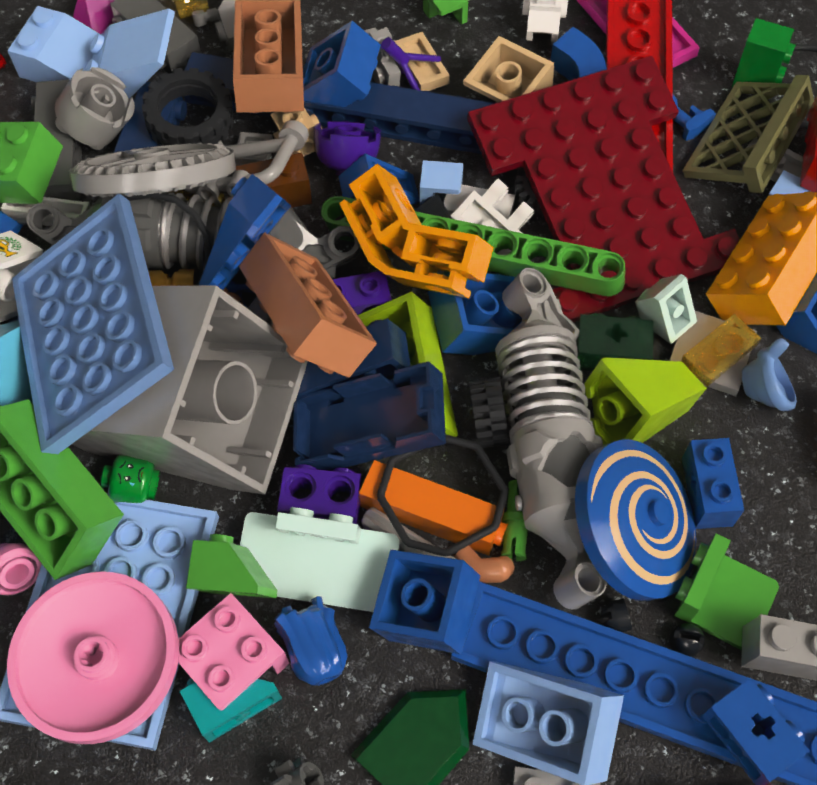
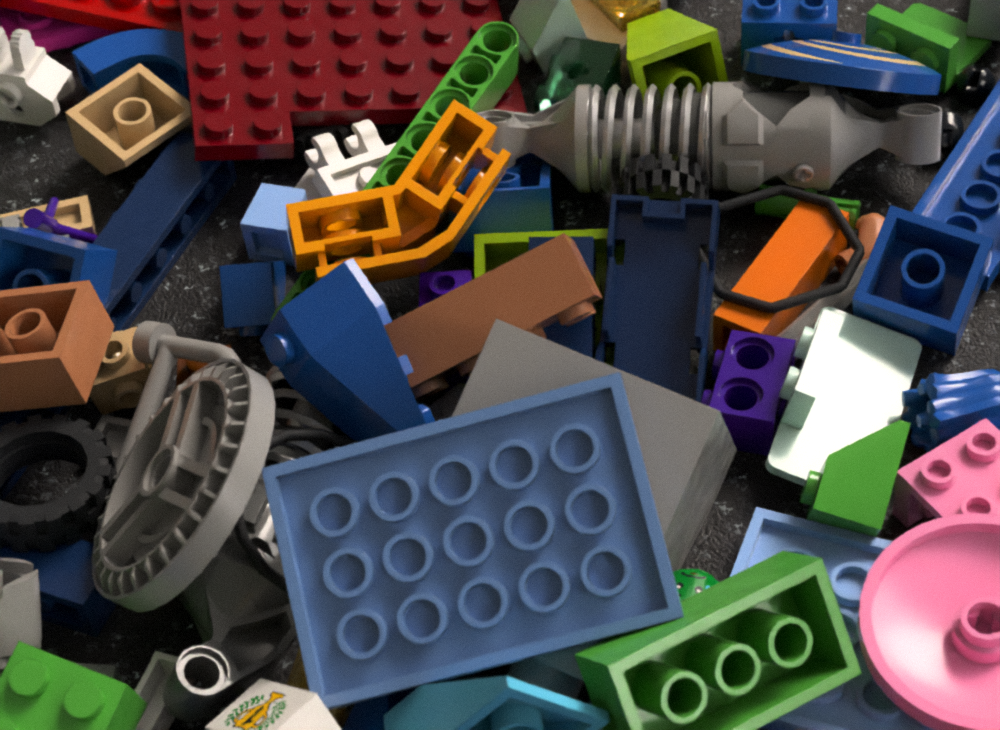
camera: 75 degrees left, 15 degrees down
(344, 144) = (184, 297): dark purple cylinder -> none

